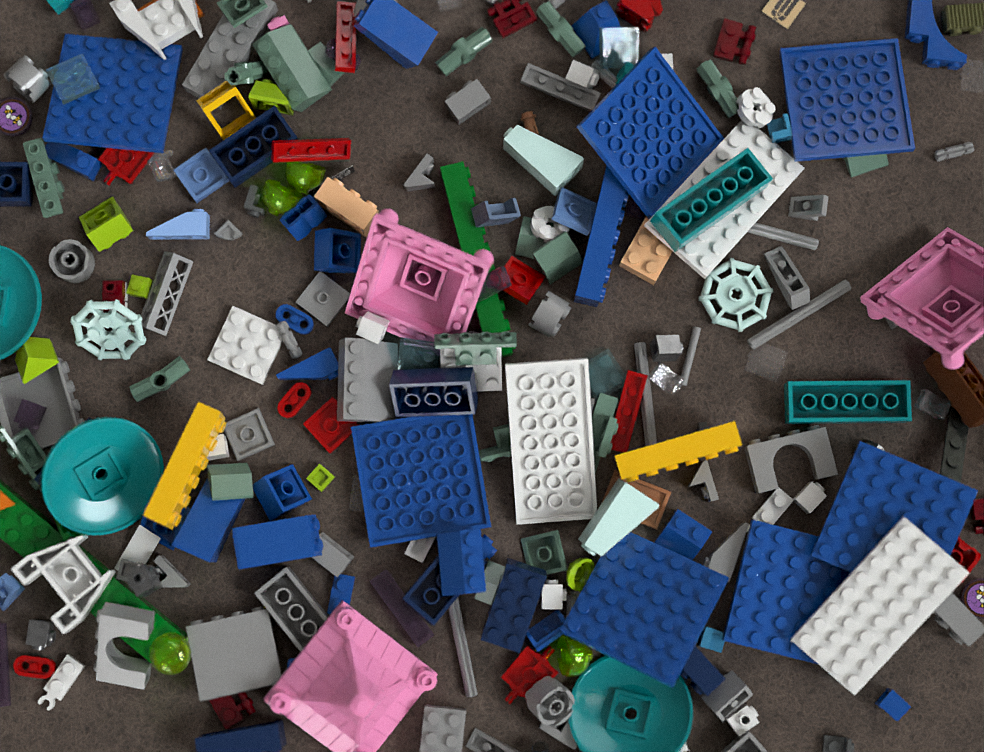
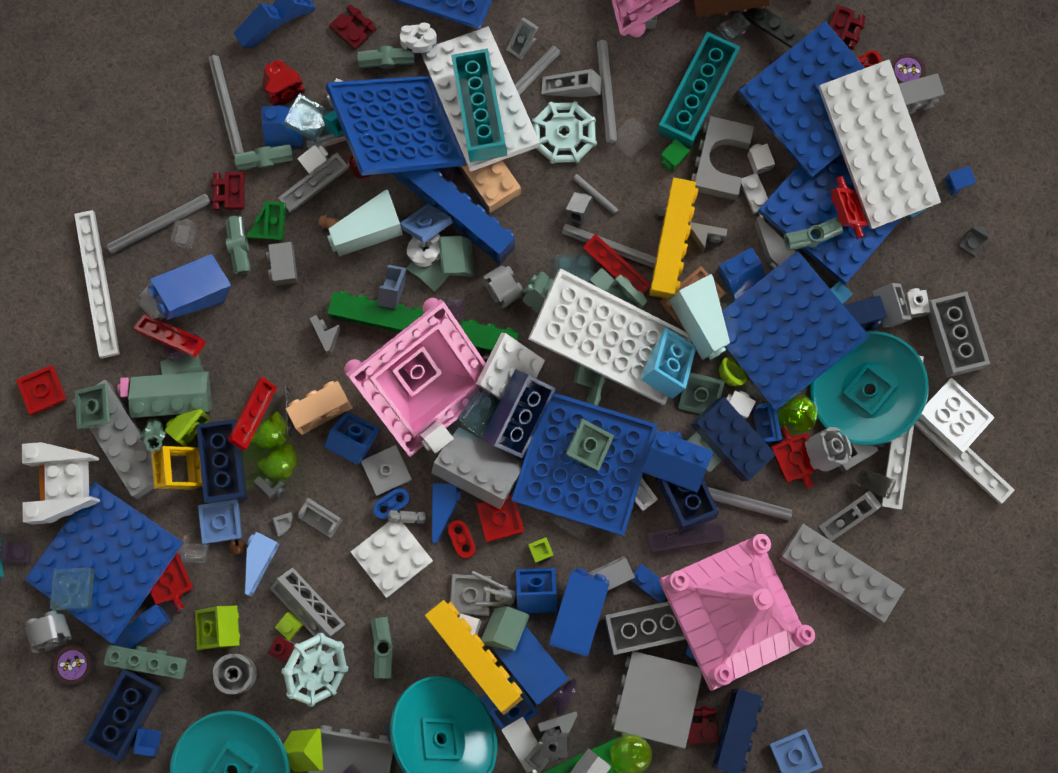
camera: 65 degrees left, 5 degrees down
(185, 202) = (236, 548): none -> reddish brown hinge
(195, 566) = (564, 696): none -> clear purple dish
(250, 261) = (319, 518): none -> light grey hinge
(261, 464) = (502, 595): none -> light grey plant
(303, 217) = (307, 450): blue brick -> none
(437, 472) = (589, 445): none -> sand green slope
(475, 347) = (500, 357): sand green bracket -> none
(501, 68) = (269, 222): none -> green wing
(524, 280) = (462, 290): red plate -> none
(555, 509) = (669, 364): none -> medium azure slope
(560, 348) = (537, 291): none -> sand green brick
(666, 379) = (605, 222): clear bracket -> none
(743, 576) = (803, 238): none -> sand green piece
(767, 411) = (674, 155): none -> green brick
(780, 129) = (446, 28): dark azure panel -> none
(797, 606) = (848, 207): none -> red plate

